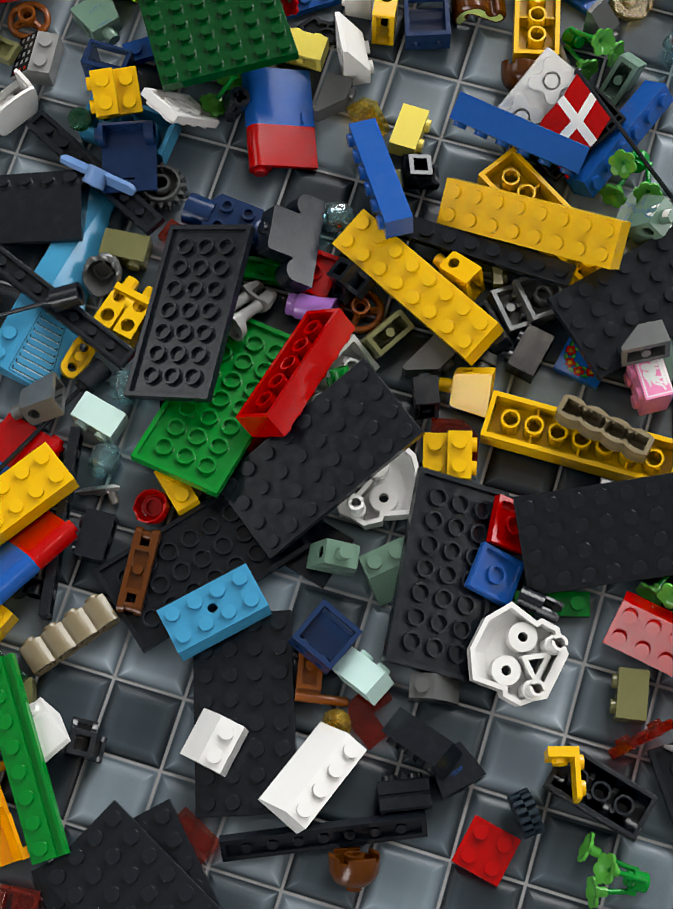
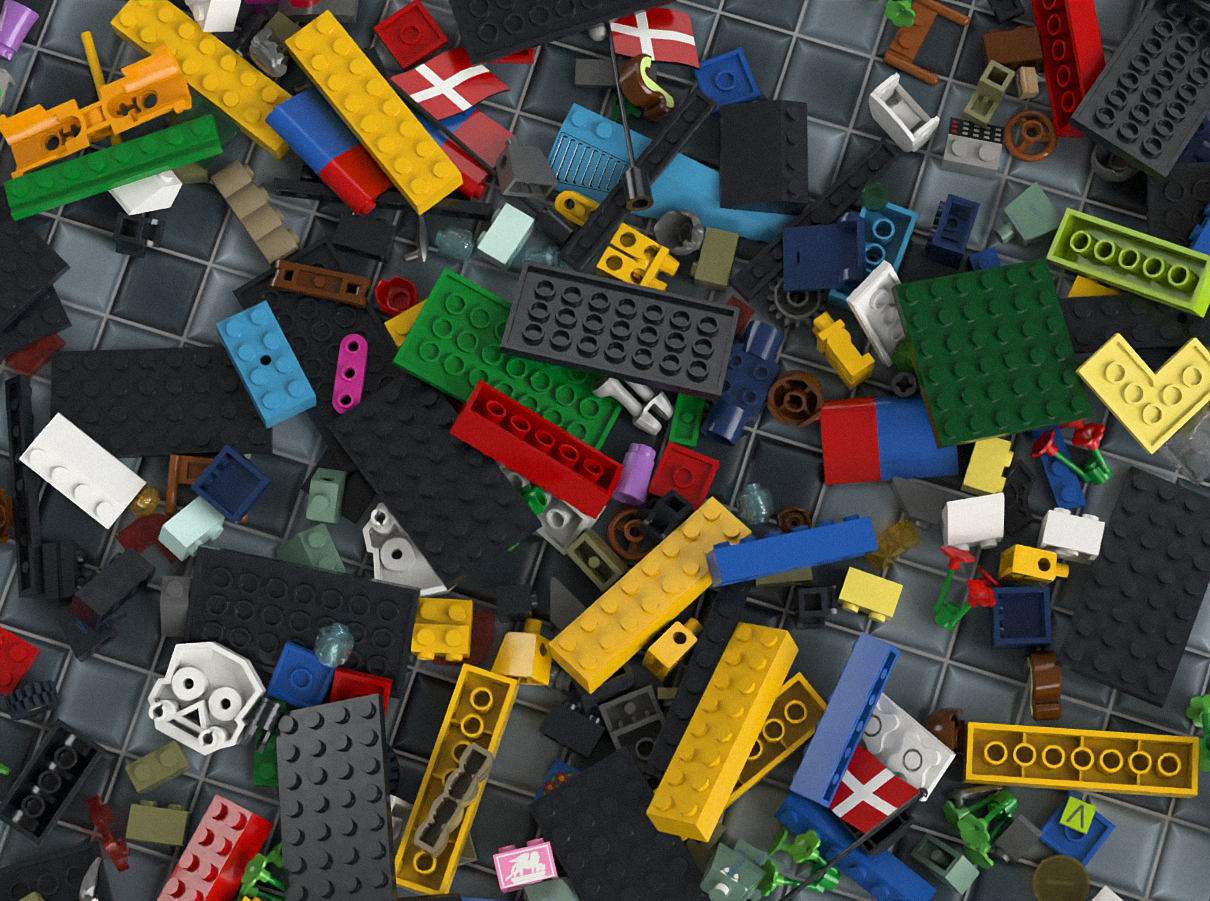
camera: 90 degrees right, 5 degrees up
(98, 177) = (798, 217): medium blue piece -> none
(114, 92) = (905, 234): yellow plate -> none
(208, 149) = (840, 352): none -> yellow hips
(214, 741) = (124, 367): white slope -> none
(233, 547) = (347, 361): none -> dark pink plate
(245, 184) = (793, 398): none -> reddish brown cylinder
(293, 240) = (712, 448): black brick -> none
(348, 182) = (790, 515): none -> reddish brown plate
(423, 73) = (979, 590): none -> plant
(469, 541) = (333, 645): none -> clear light blue head
(560, 757) = (83, 734): yellow bracket -> none
(579, 697) = (158, 767): none -> olive brick
(646, 343) = (559, 855): dark grey slope -> none

